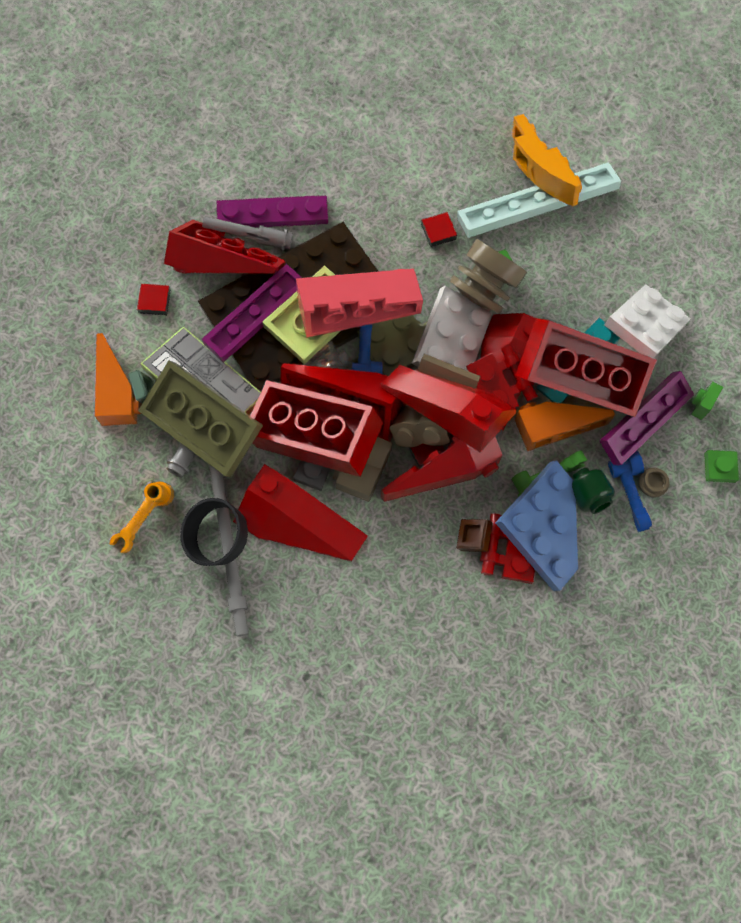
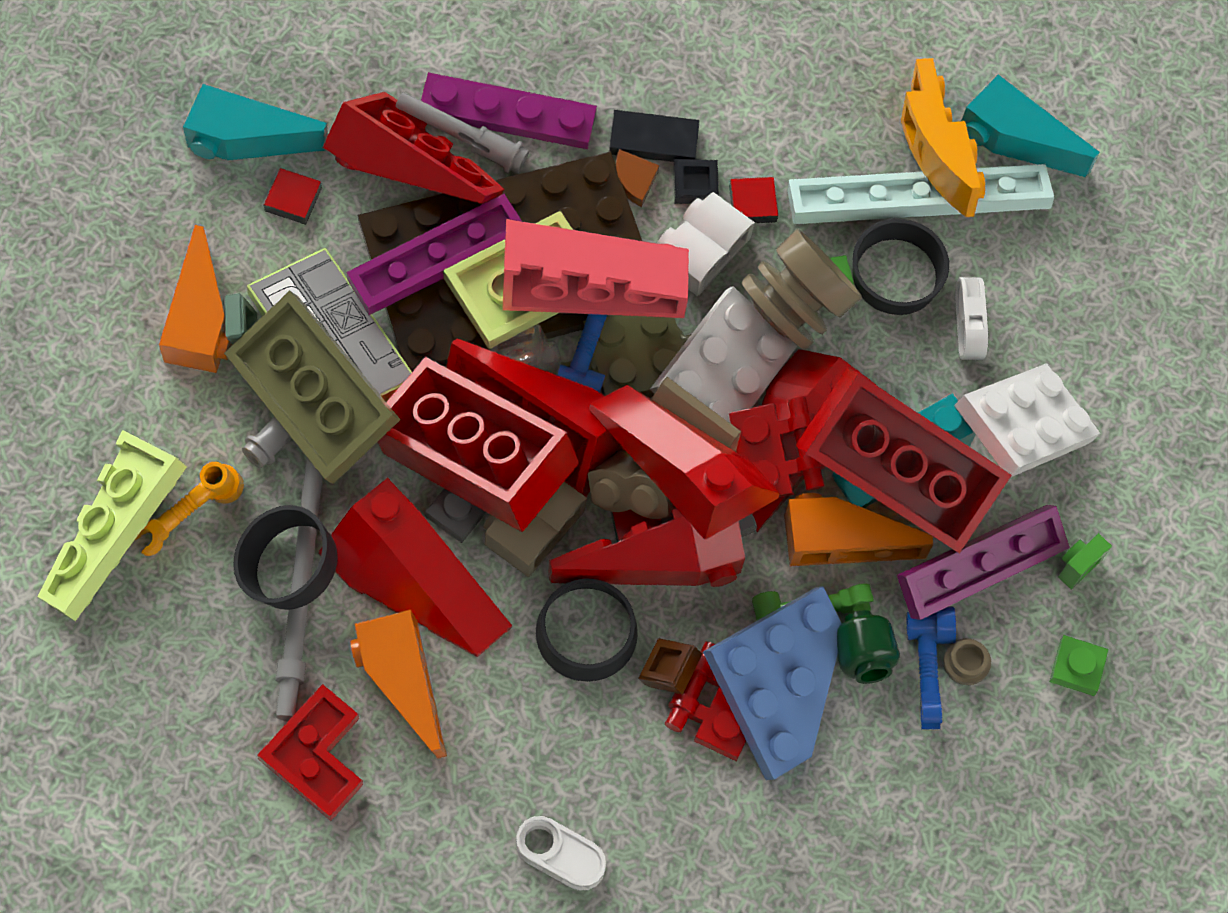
camera: 10 degrees right, 5 degrees down
(100, 528) = (121, 510): none -> yellowish green wing
(111, 264) = (245, 128): none -> teal slope
(259, 654) = (303, 756): none -> red plate
(304, 583) = (396, 661): none -> orange slope
(363, 232) = (636, 176): none -> dark orange tile
(367, 205) = (654, 136): none -> black tile
(400, 226) = (694, 179): none -> black tile
(410, 553) = (581, 671): none -> black tyre
(422, 255) = (713, 235): none -> white brick
(447, 676) = (571, 858): none -> white piece
(548, 226) = (909, 232): none -> black tyre
(591, 145) = (1022, 130): none -> teal slope
(593, 268) = (971, 318): none -> white piece

